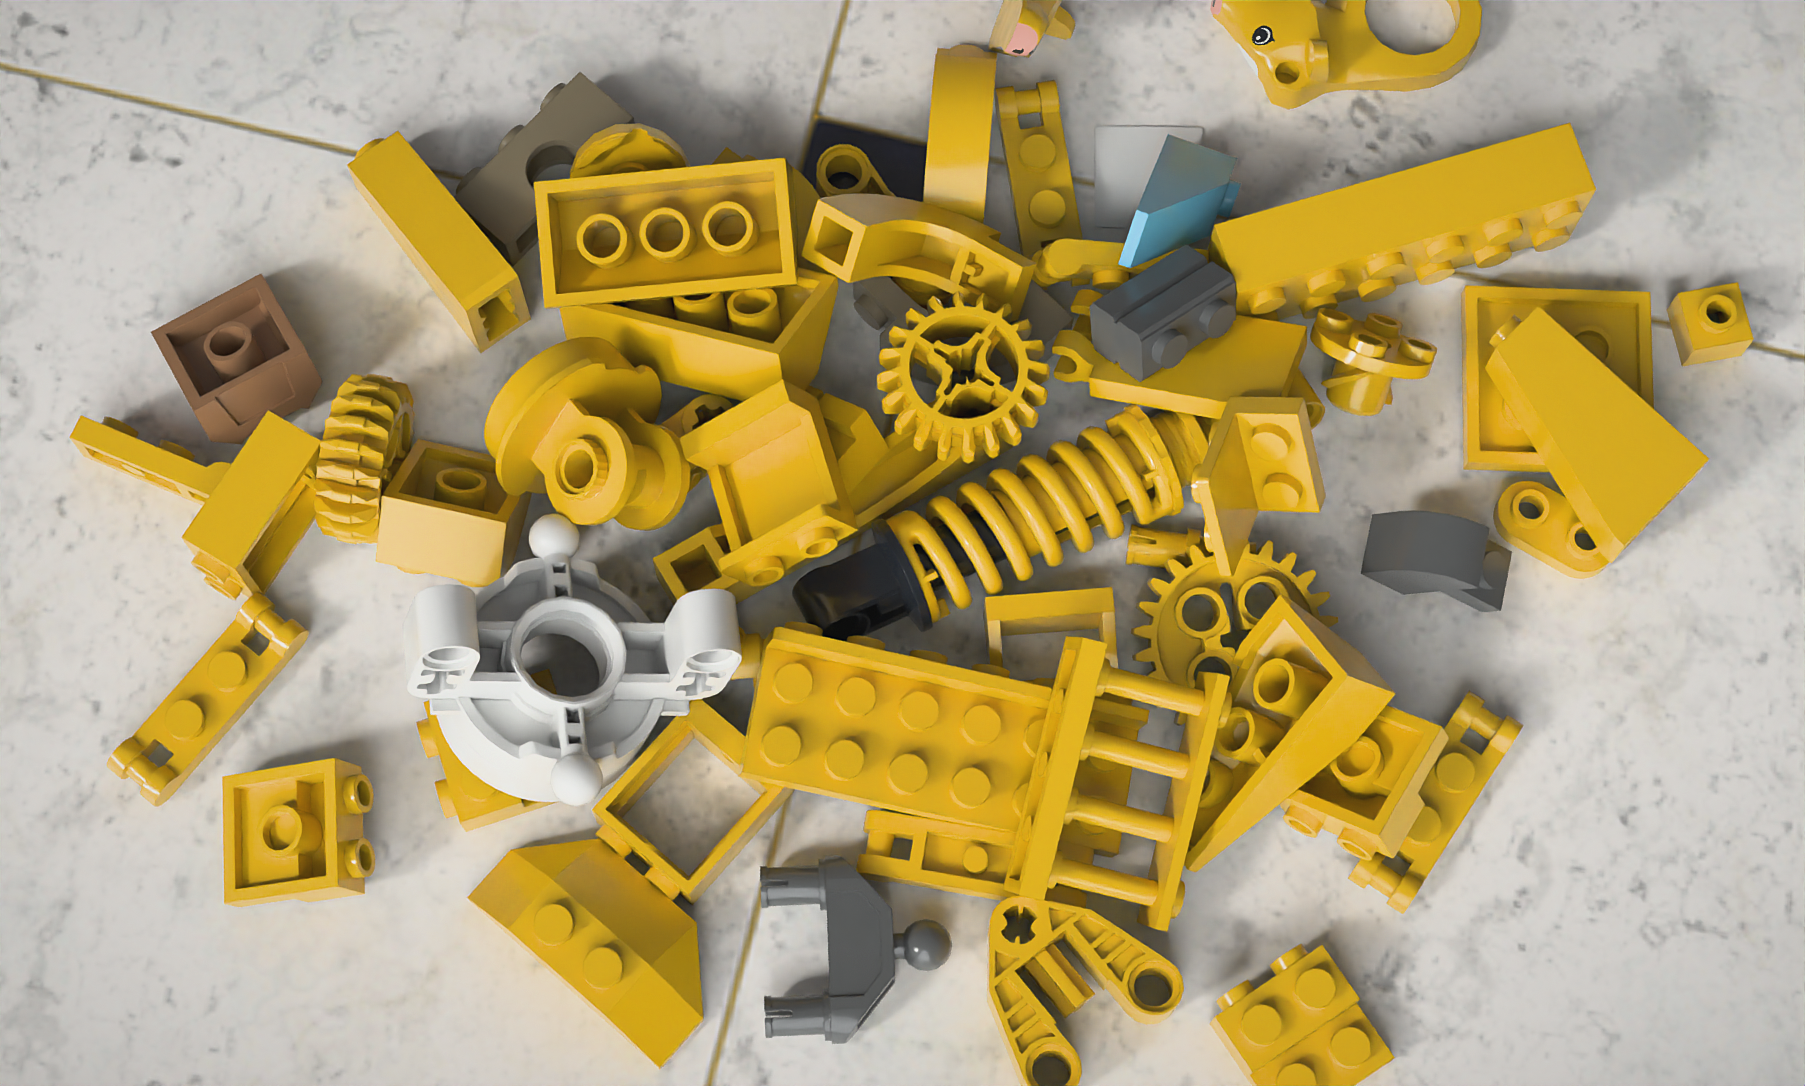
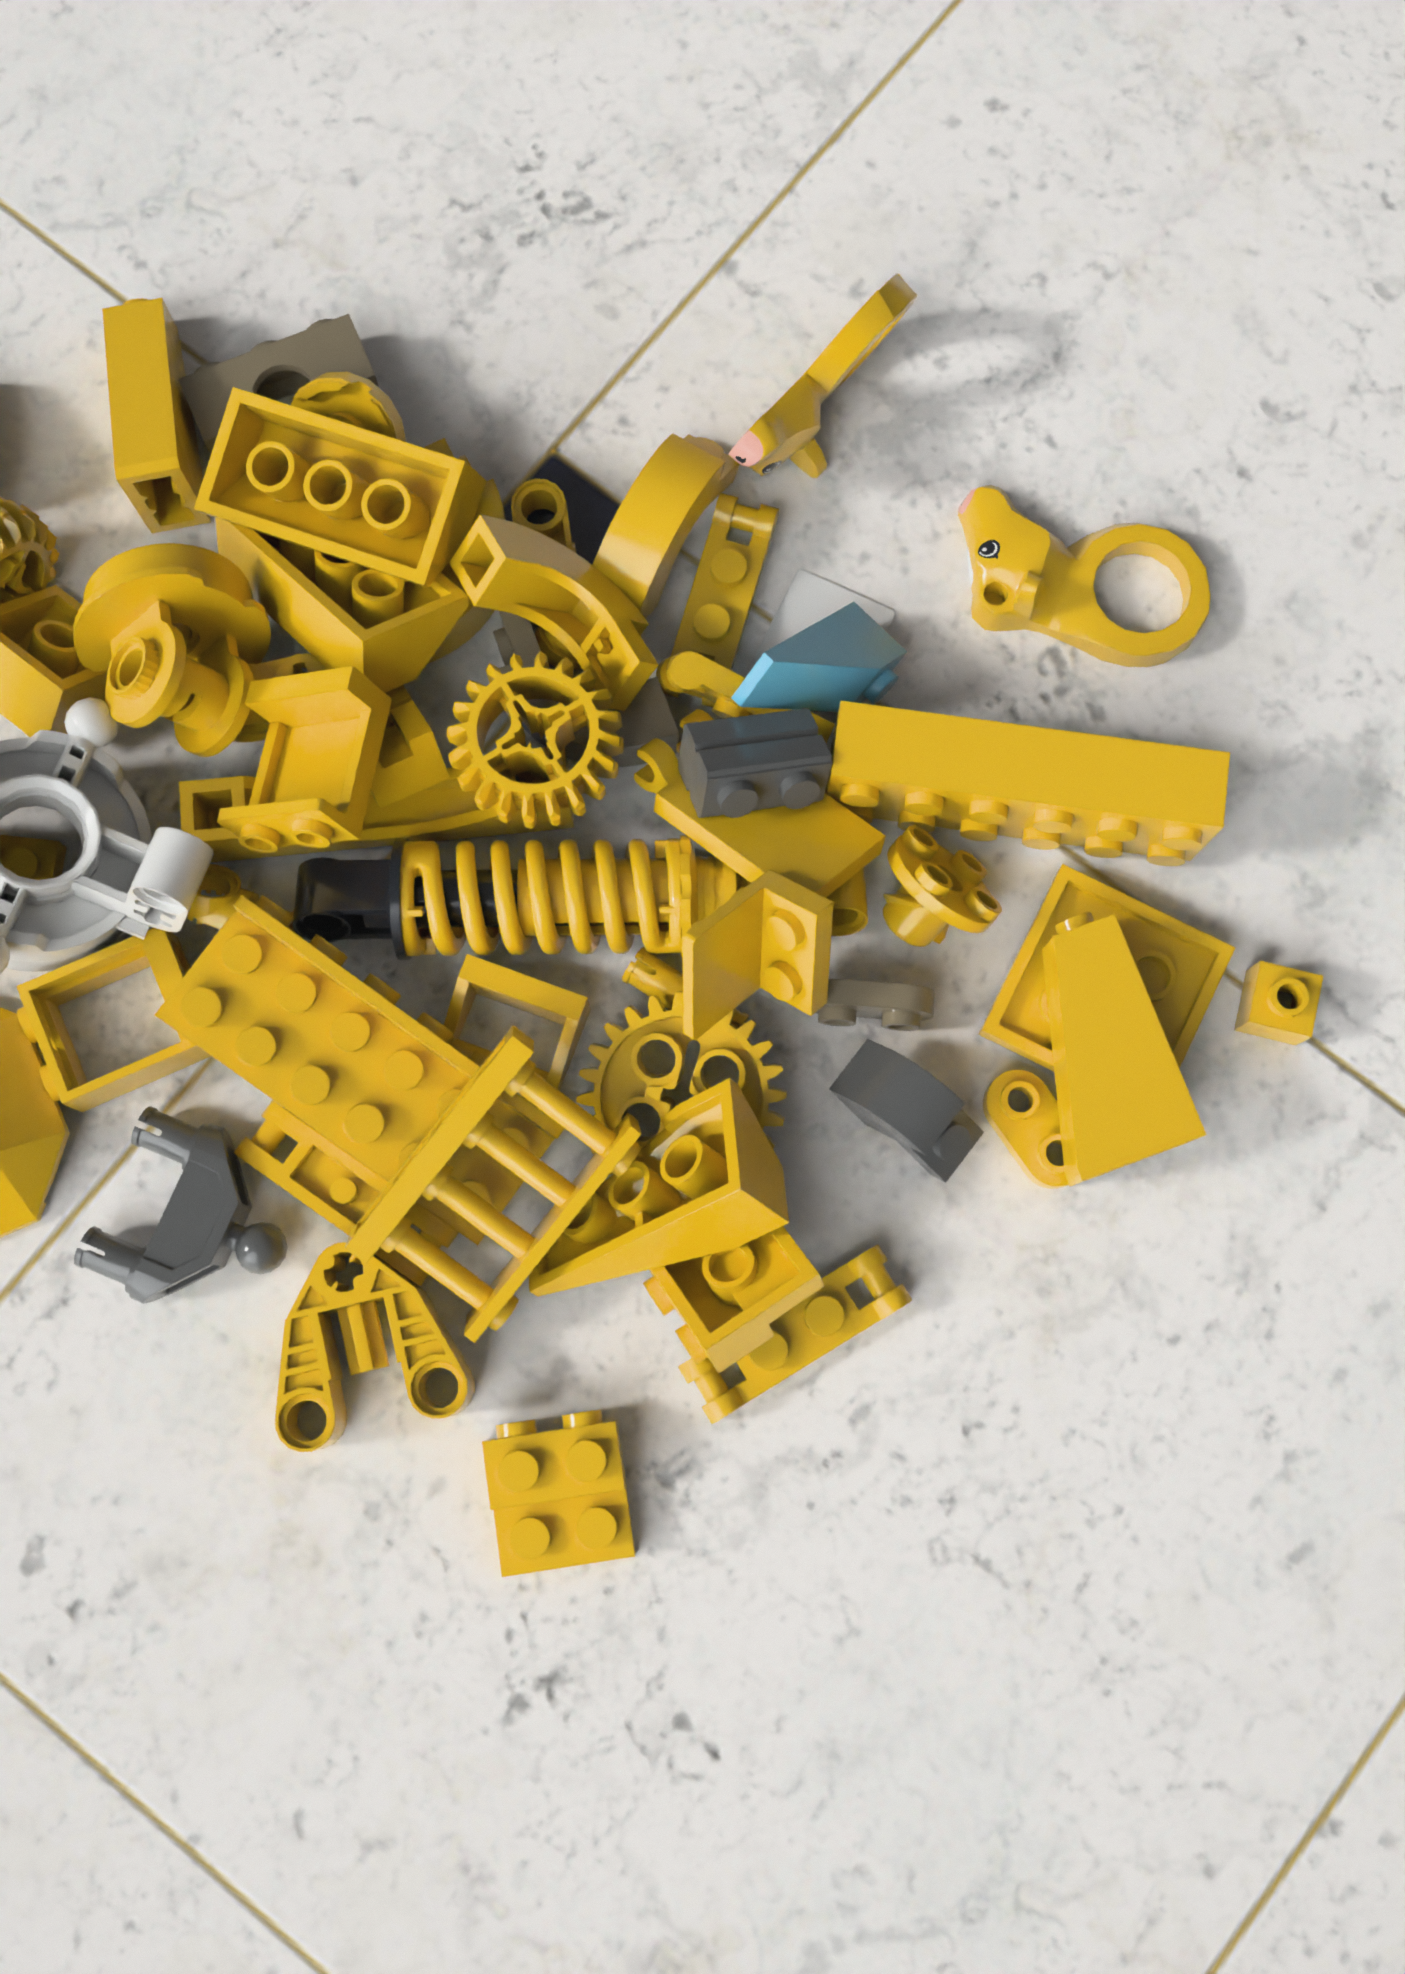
camera: 25 degrees right, 5 degrees up
(1381, 473) = (895, 1003): none -> dark tan plate

